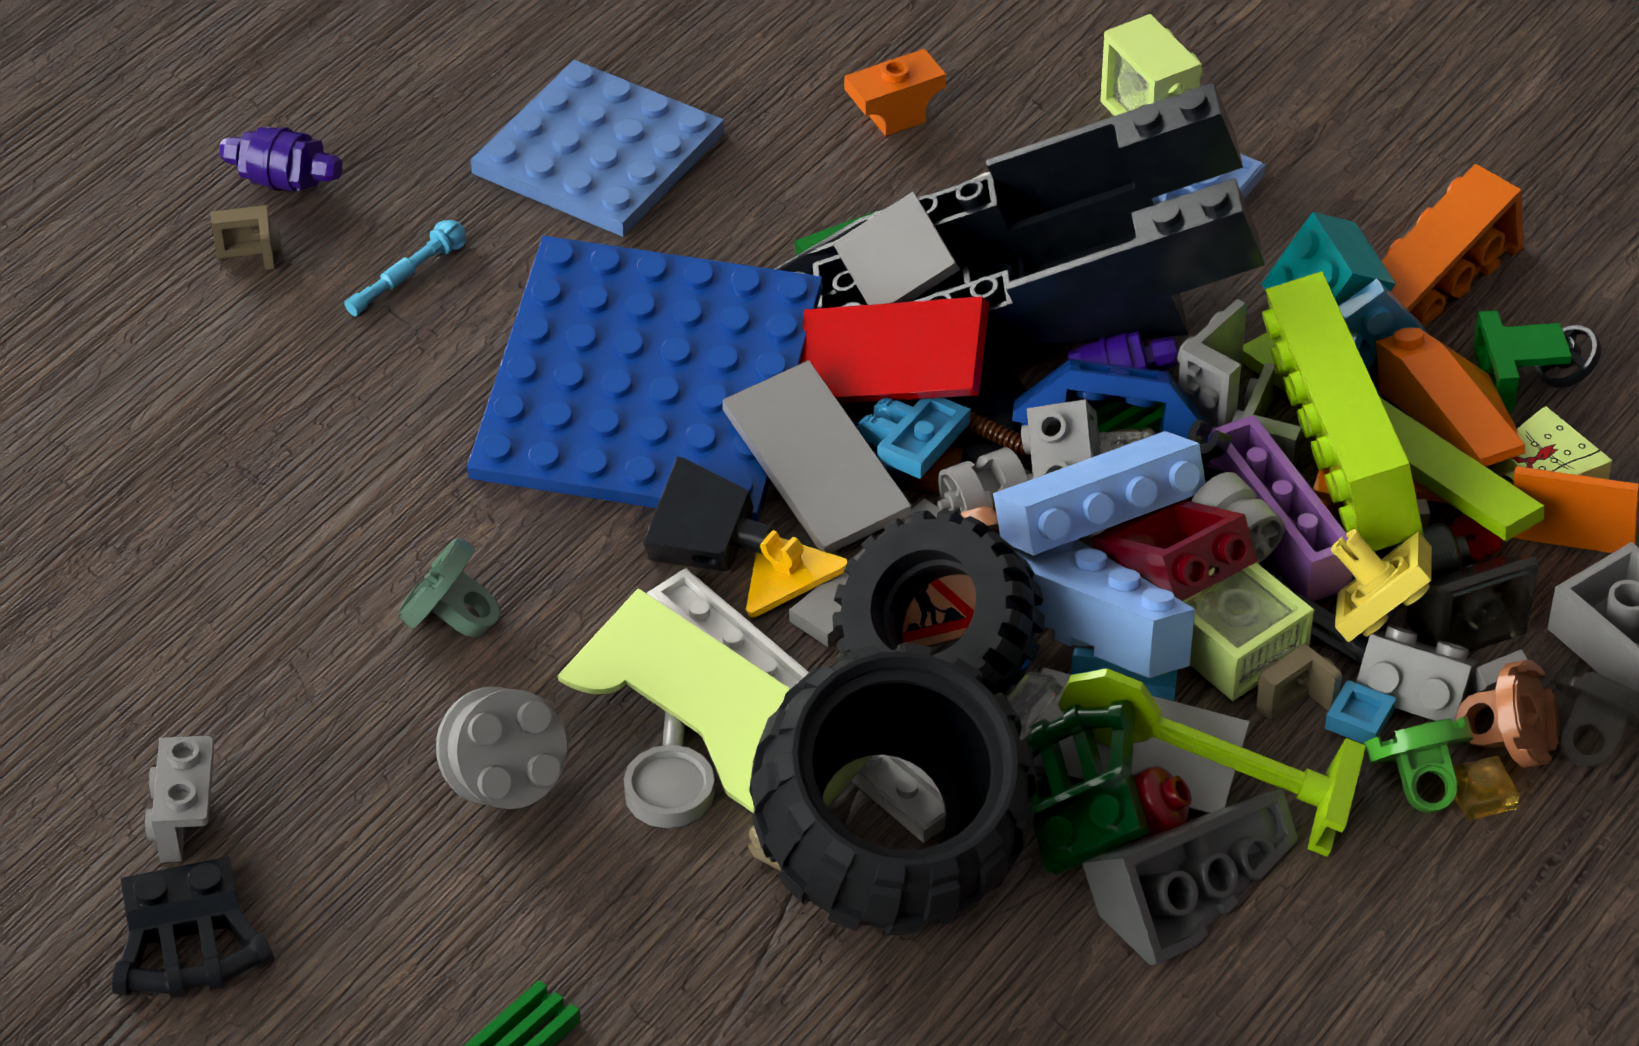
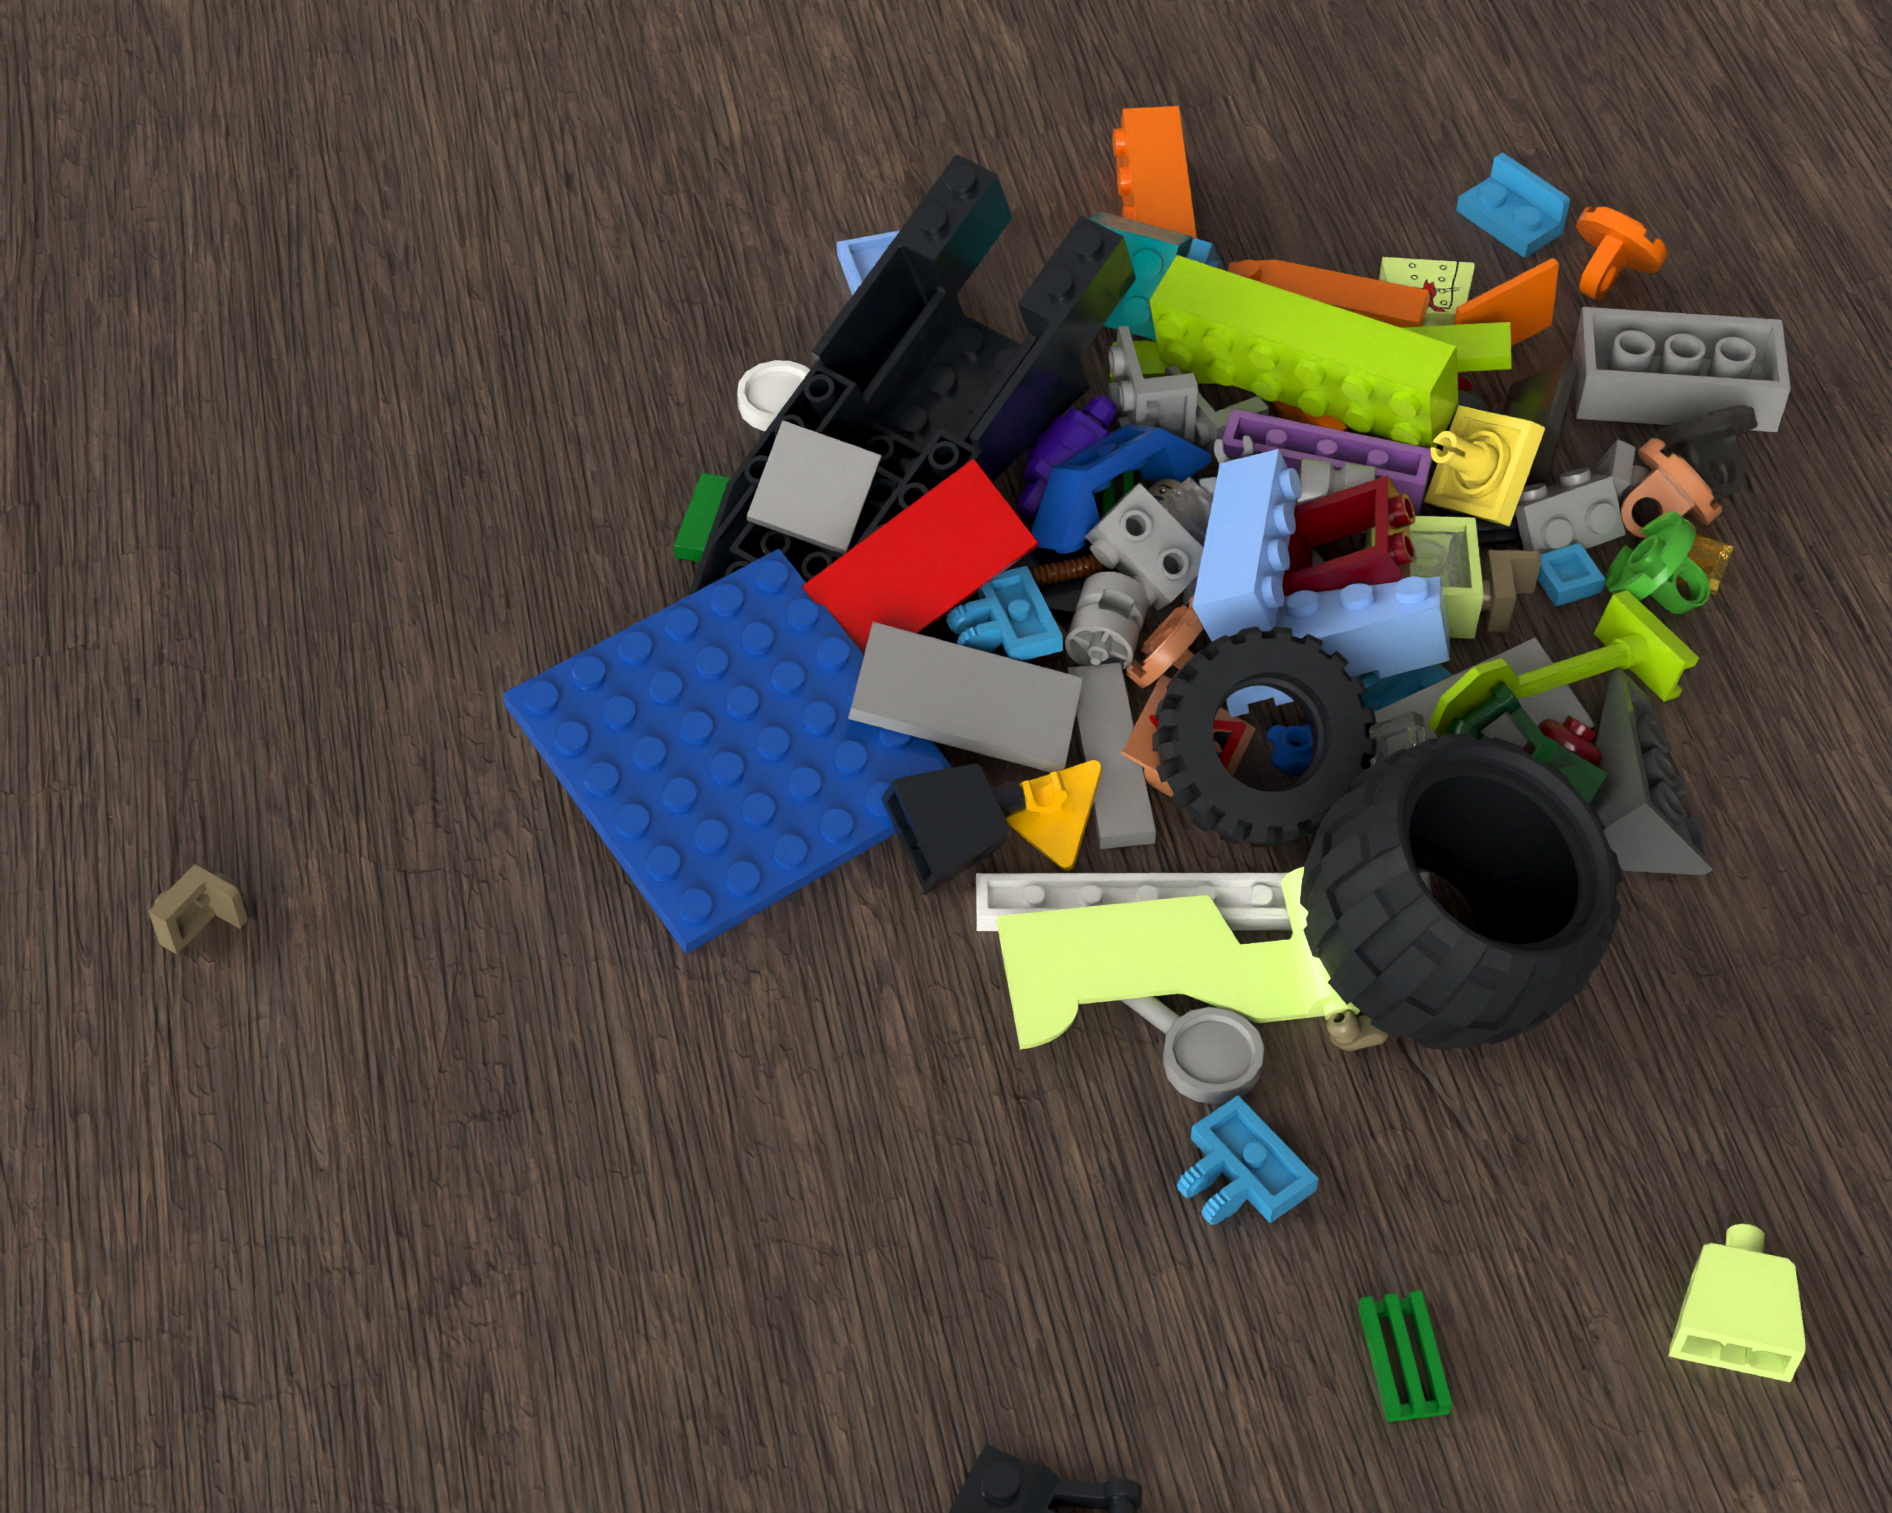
camera: 50 degrees left, 5 degrees up
(179, 792) = (884, 1430): light grey bracket -> none
(280, 158) = (132, 816): dark purple piece -> none
(445, 237) = (375, 772): medium azure piece -> none
(447, 590) = (836, 1056): sand green tile -> none
(501, 747) = (1090, 1139): light grey wheel -> none
(584, 857) = (1252, 1160): none -> dark azure hinge
(598, 147) = (389, 595): medium blue plate -> none
(897, 90) = (588, 362): orange brick -> none
(1144, 65) = (780, 217): yellowish green piece -> none
(1539, 345) = (1300, 230): green piece -> none

